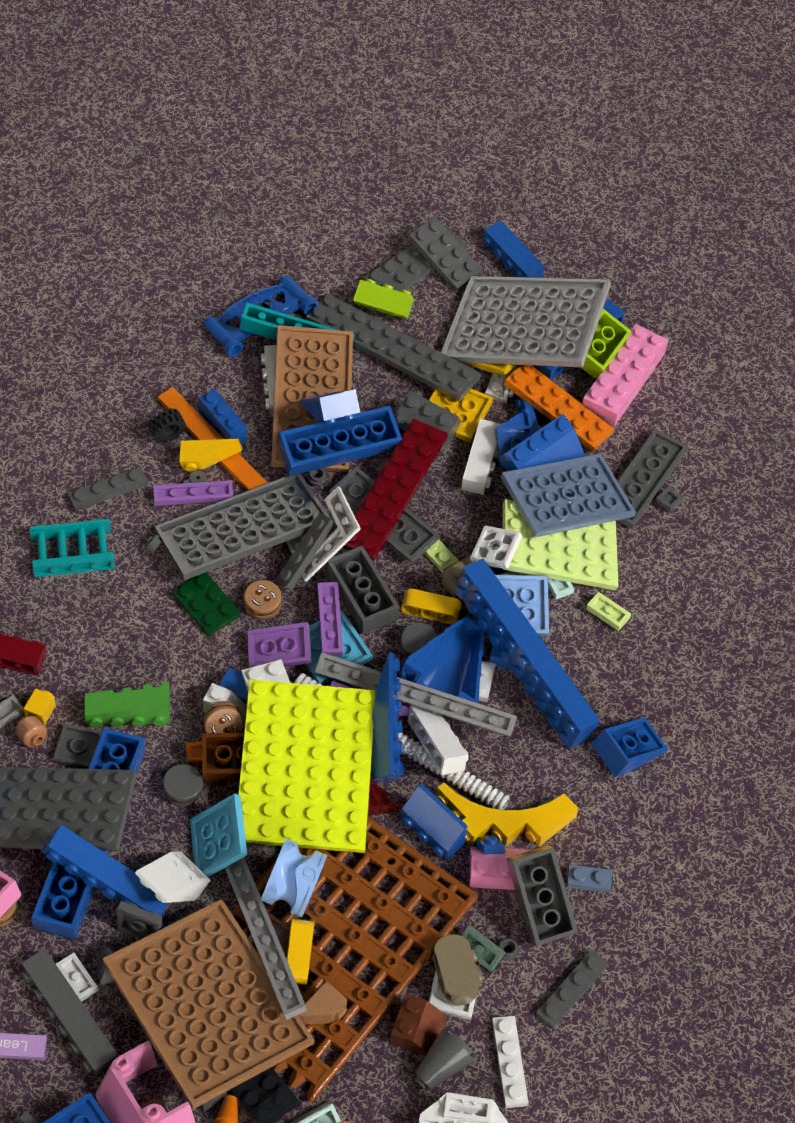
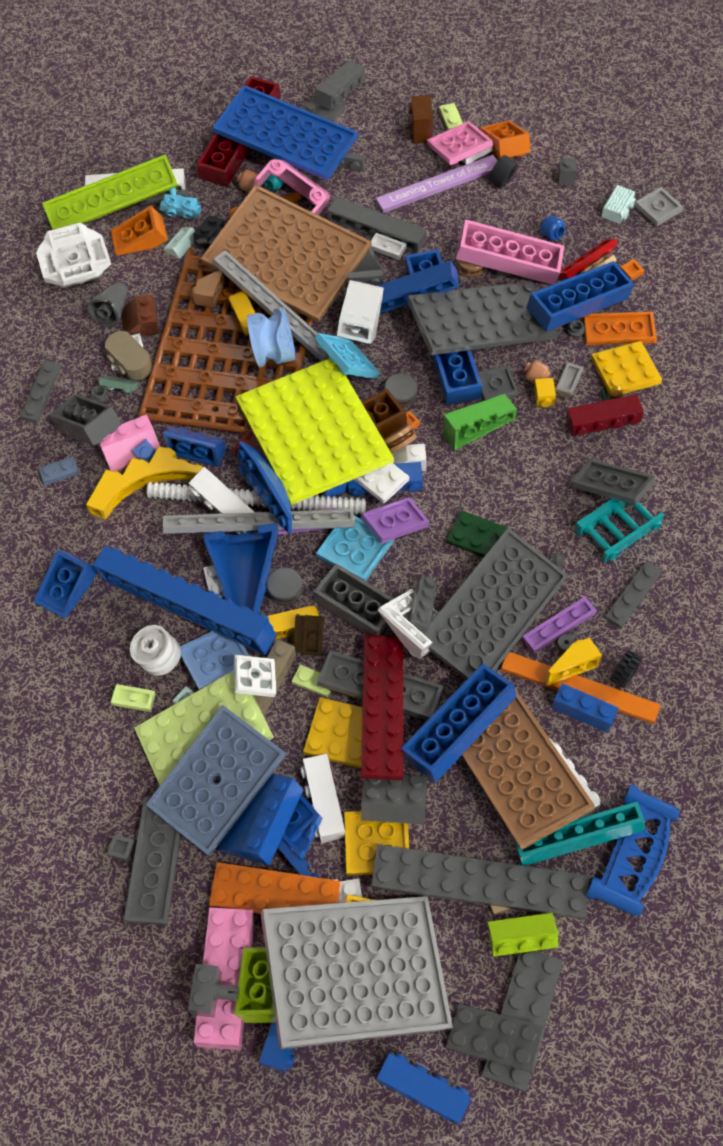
camera: 160 degrees right, 5 degrees up
(52, 576) = (613, 481): none -> dark grey plate
(262, 599) = (436, 558): medium nougat head -> none
(330, 618) = (367, 559): medium lavender plate -> none
(332, 406) = (486, 736): slope -> none
(419, 579) = (309, 634): none -> dark brown plate
(441, 501) = (336, 732): none -> yellow plate
(510, 1062) = (67, 329): white plate -> none
(571, 631) = (155, 650): none -> white wheel
(645, 350) = (207, 990): none -> dark grey brick

